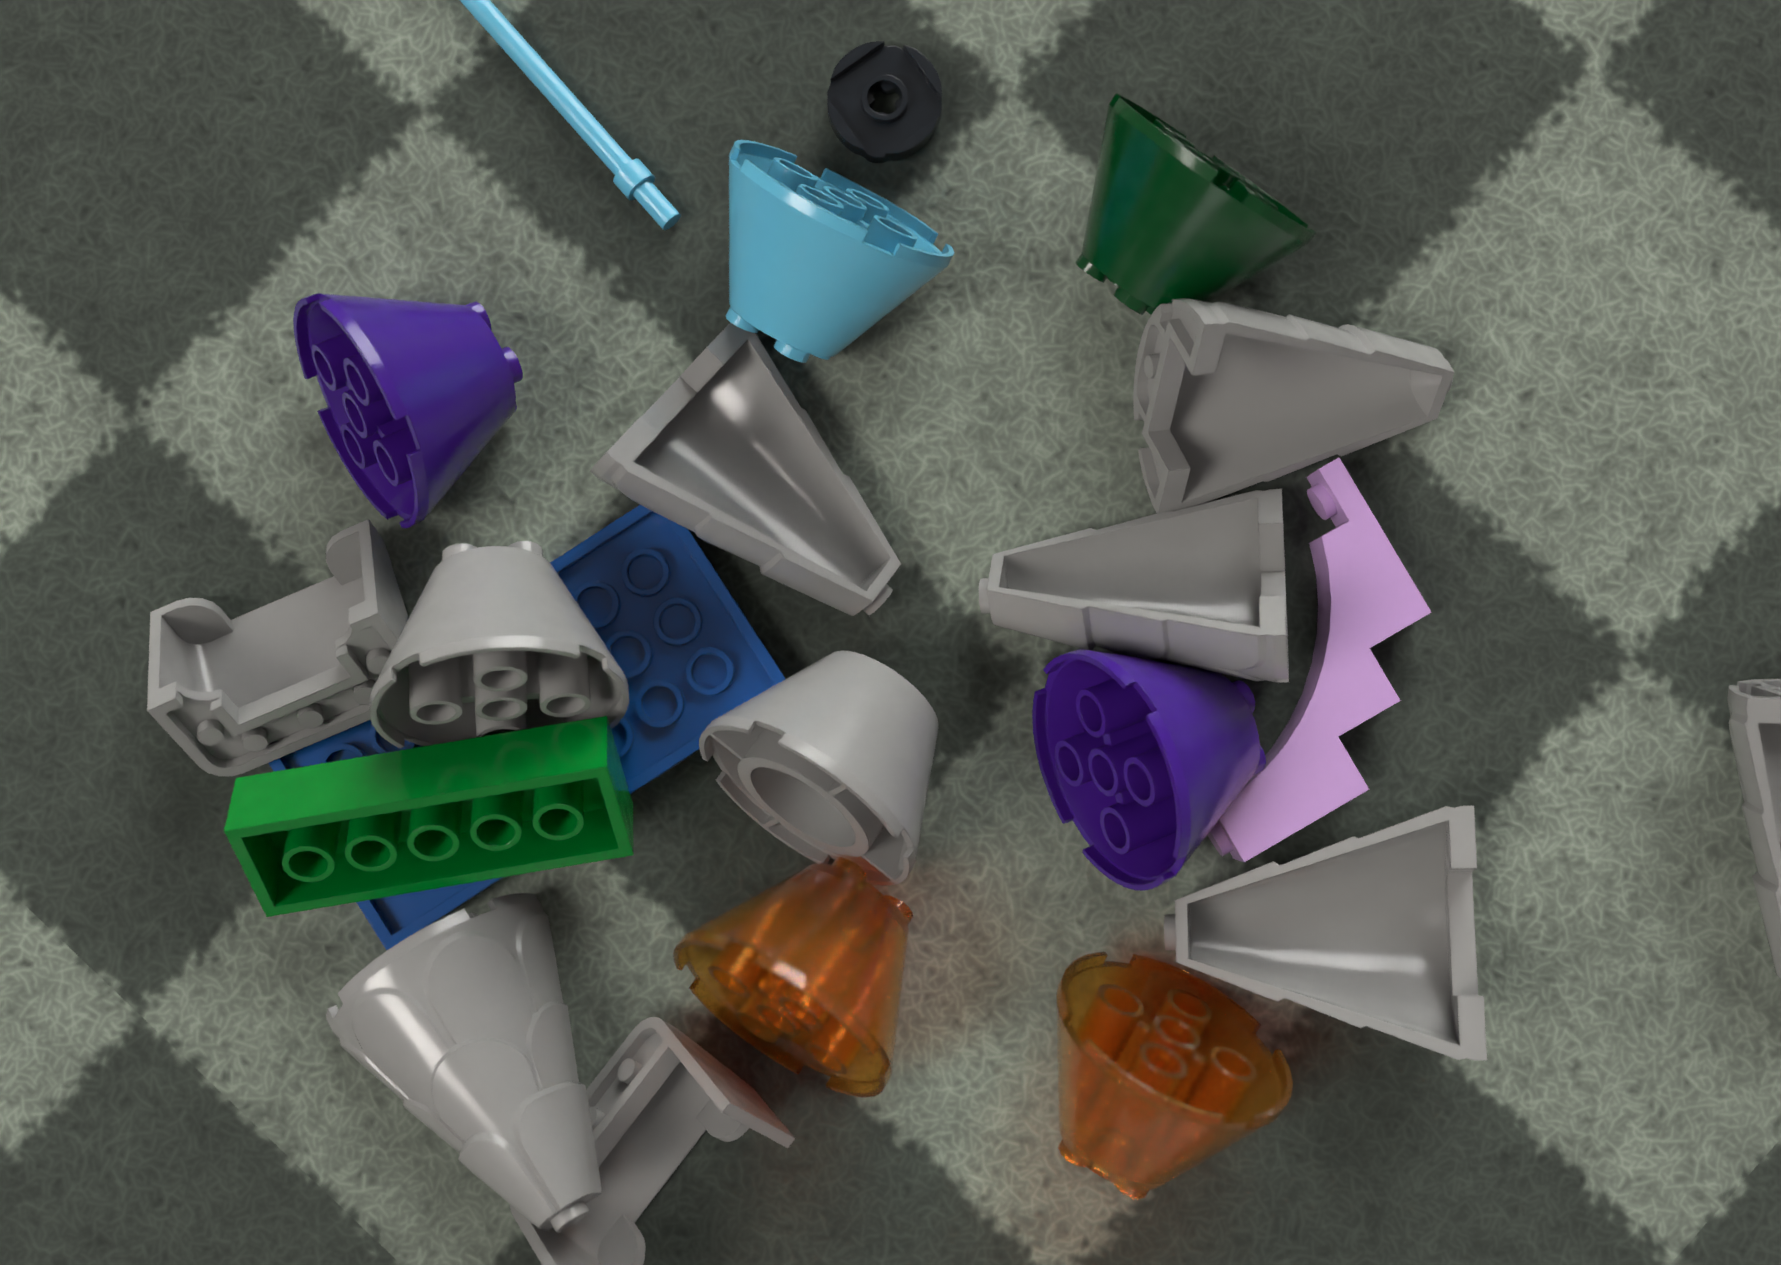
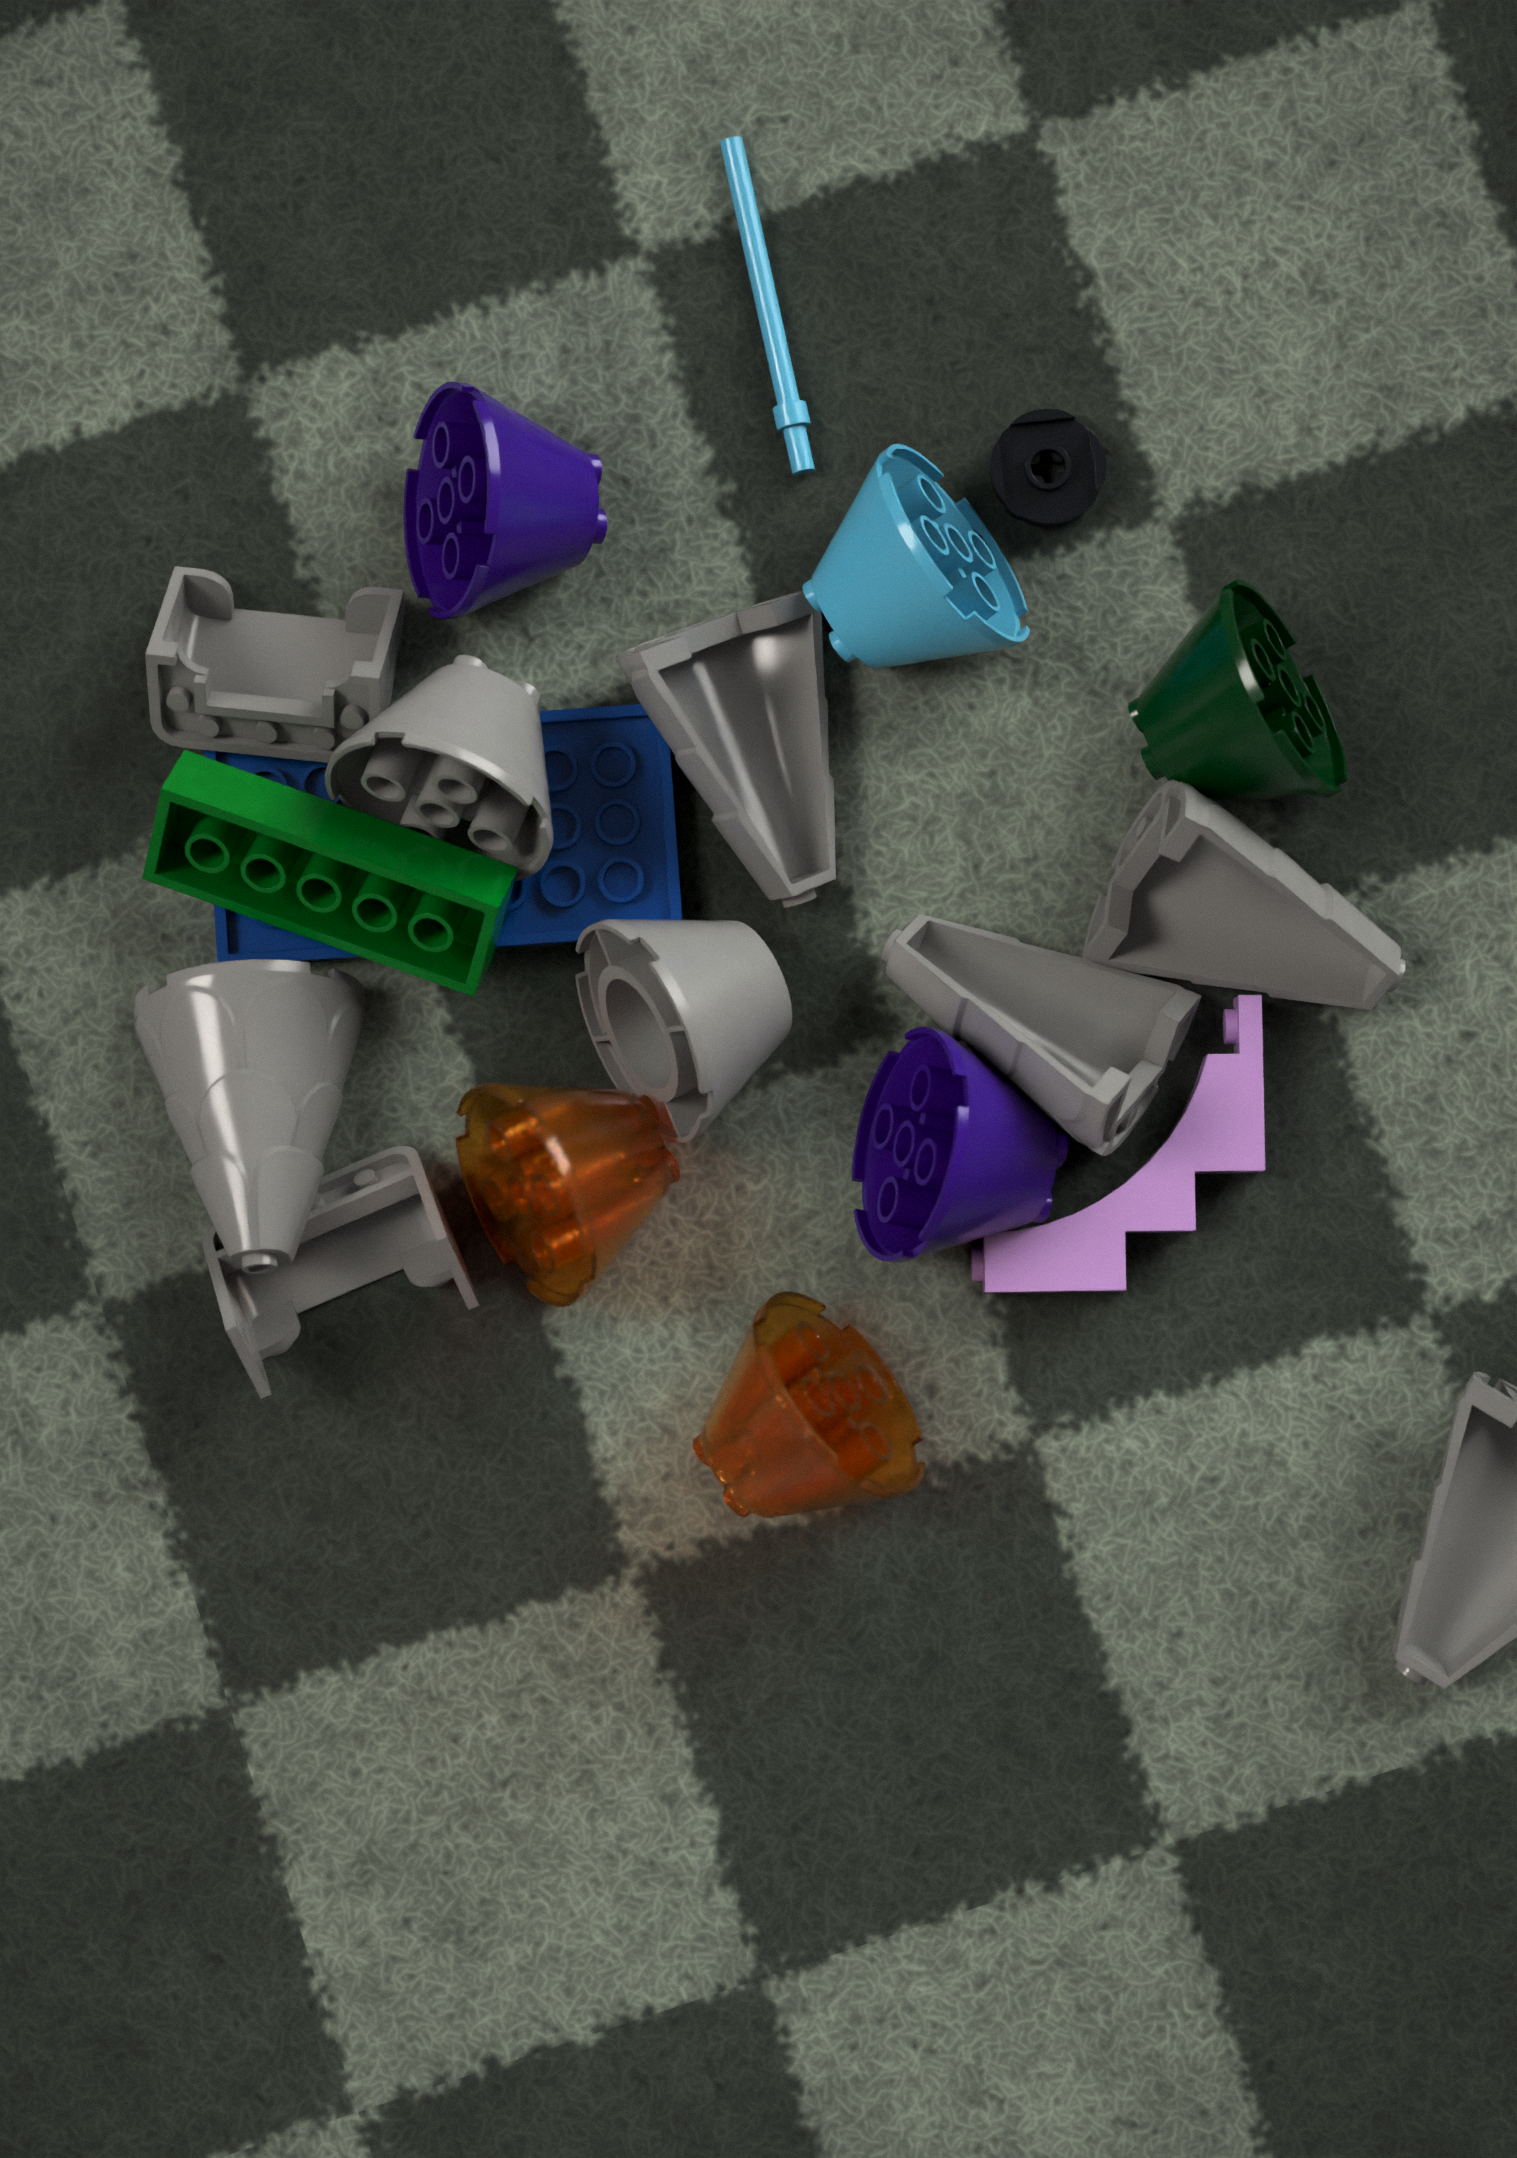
camera: 35 degrees right, 0 degrees up
(1355, 931) = (1047, 1399): light grey cone -> none

